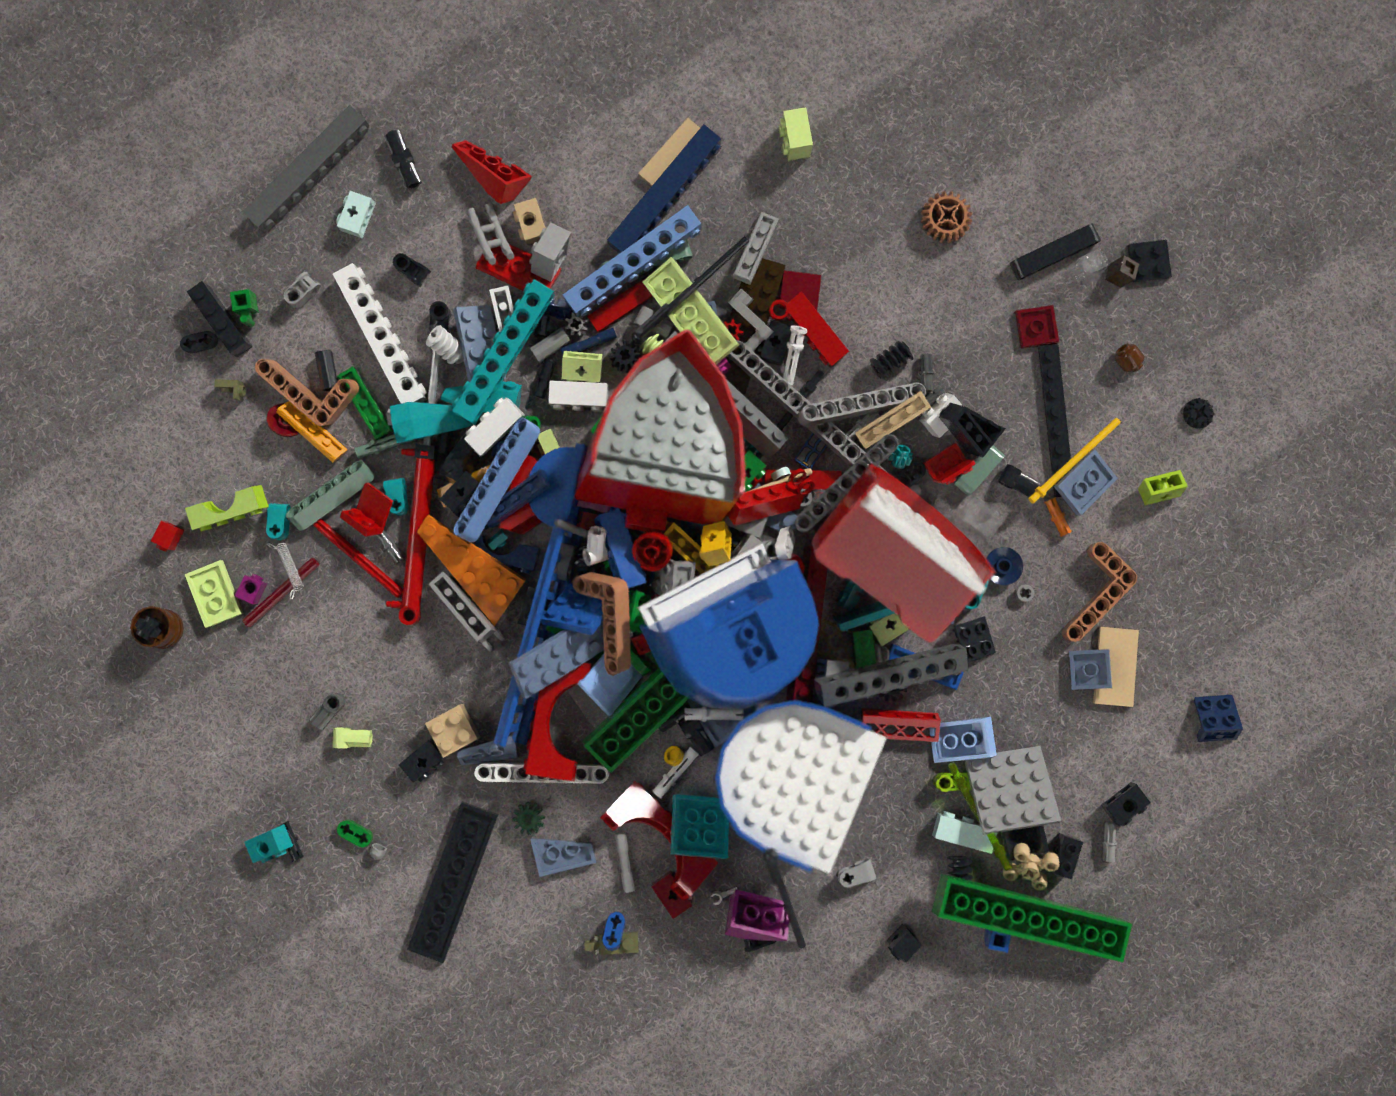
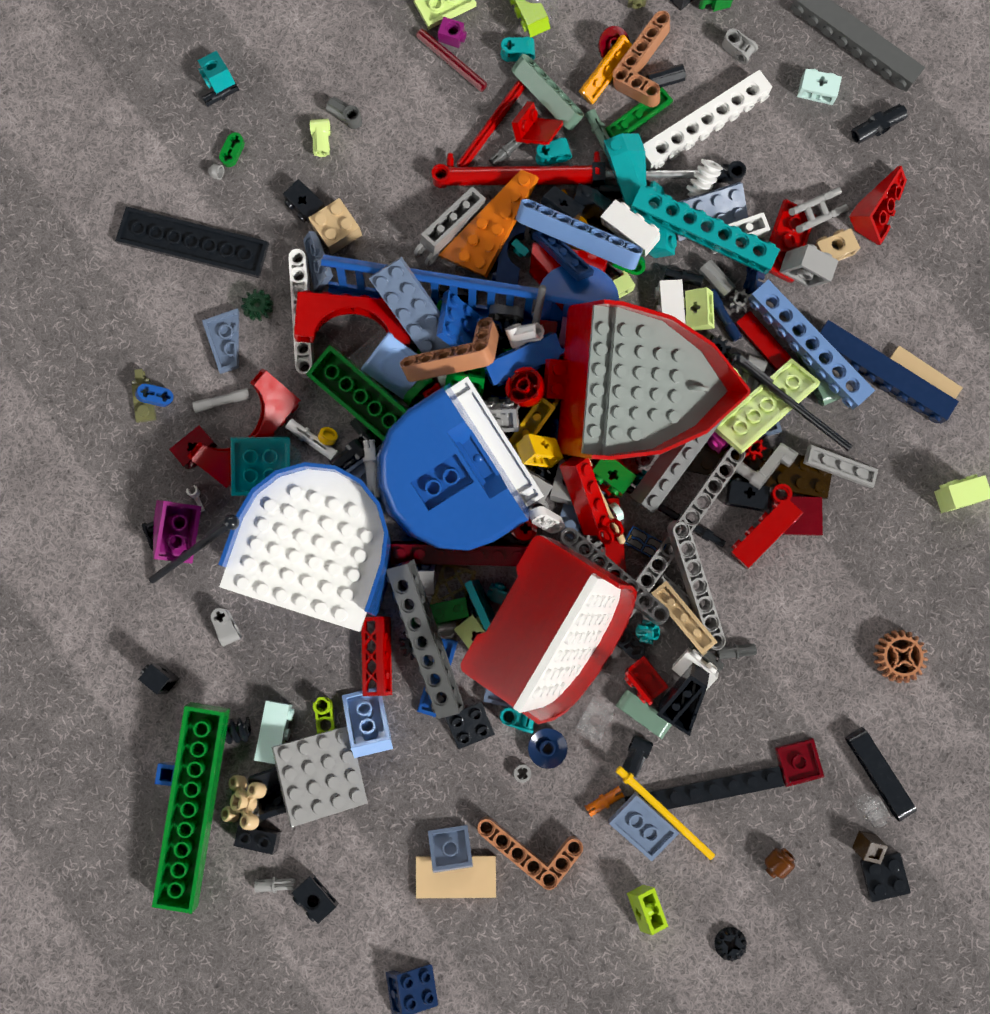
camera: 85 degrees right, 5 degrees down
(286, 567) = (472, 61): white piece -> none
(412, 271) = (772, 144): black piece -> none
(543, 327) = (733, 269): black gear -> none
(794, 347) = (746, 512): white pin -> none
(891, 358) = (746, 613): black piece -> none
(960, 782) = (323, 722): clear neon green bar -> none

